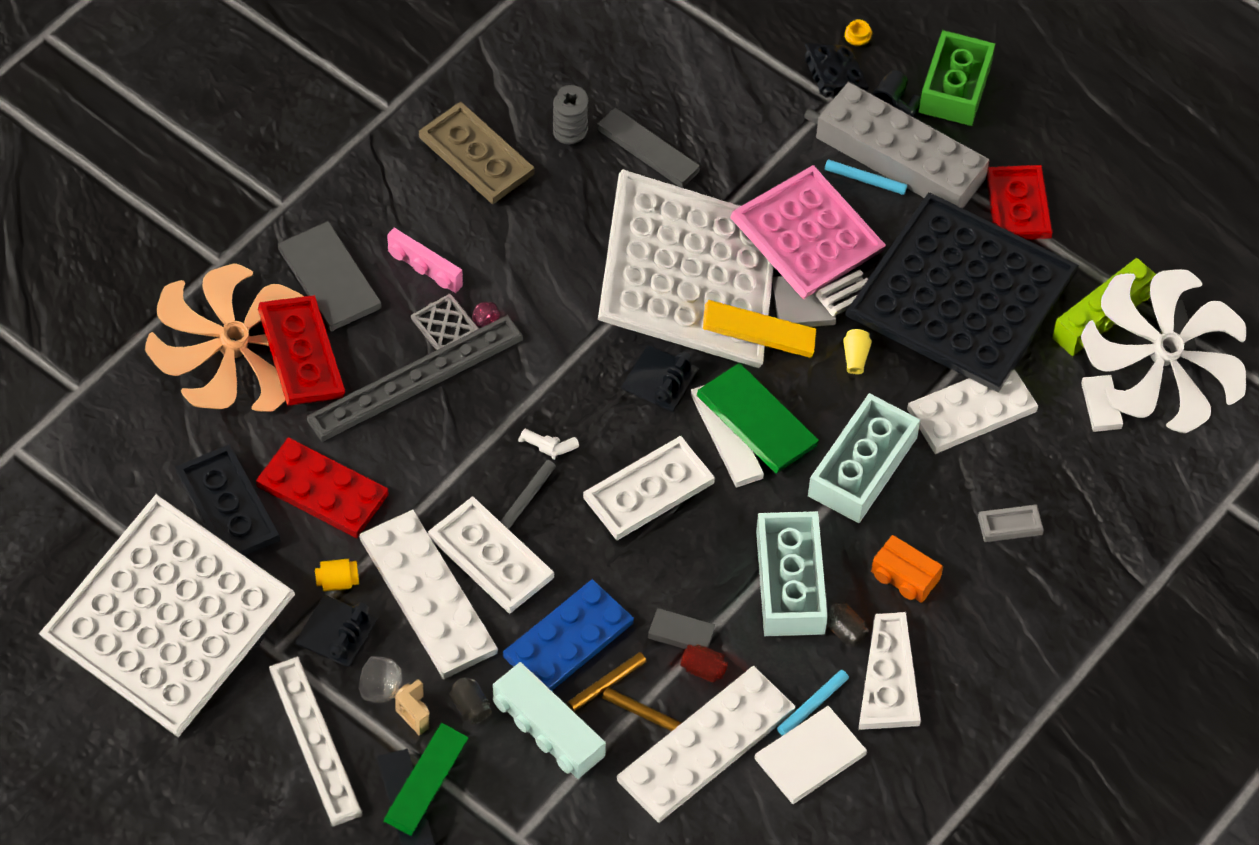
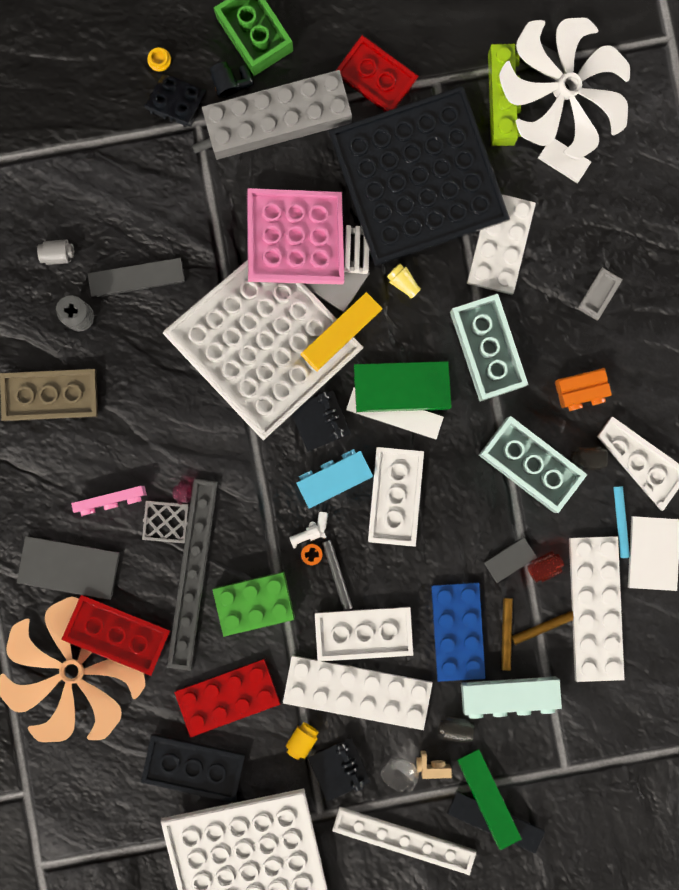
camera: 45 degrees left, 30 degrees up
(435, 439) = (253, 603): none -> bright green brick
(528, 452) = (316, 559): none -> orange bush
(610, 71) = (55, 252): none -> light grey brick
(616, 424) = (334, 478): none -> medium azure brick
(865, 177) = (275, 156): medium azure bar -> none

